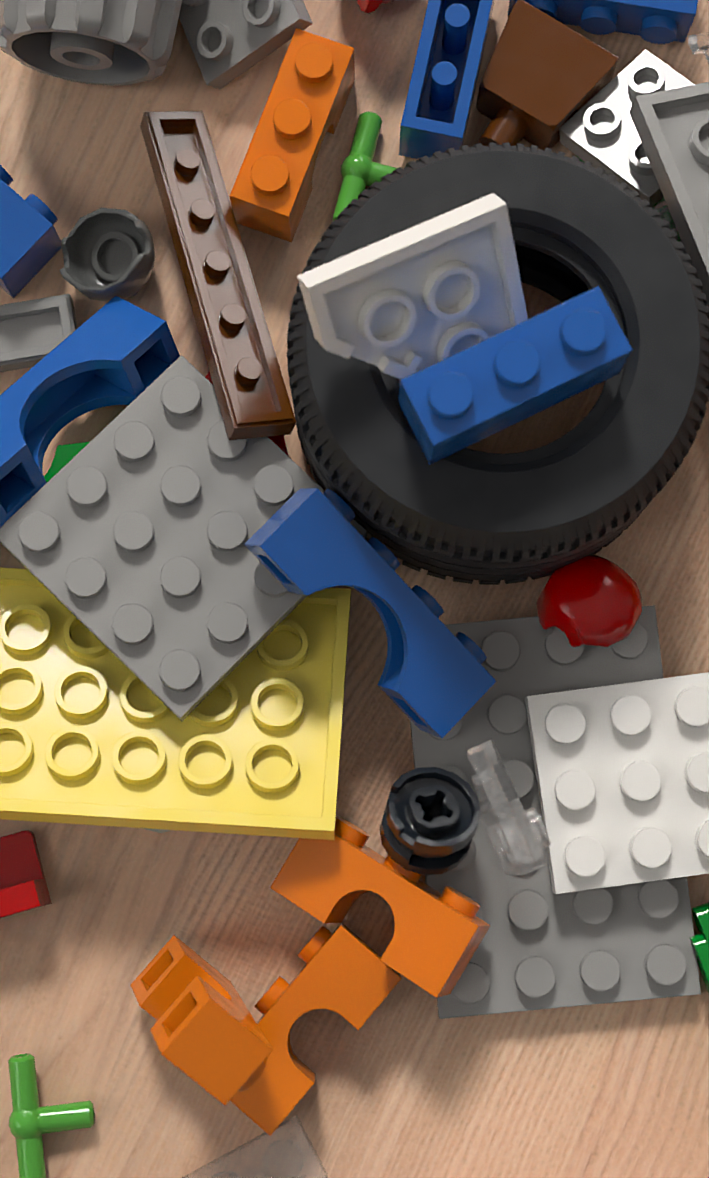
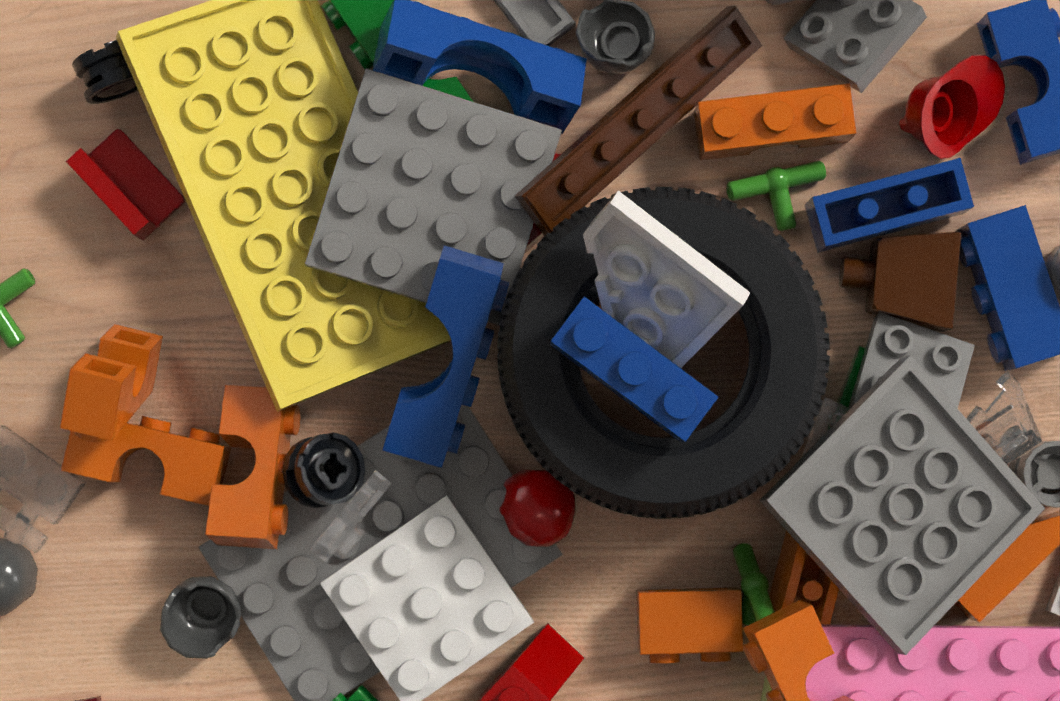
camera: 65 degrees right, 5 degrees up
(524, 1057) = (200, 617): none -> dark grey hair

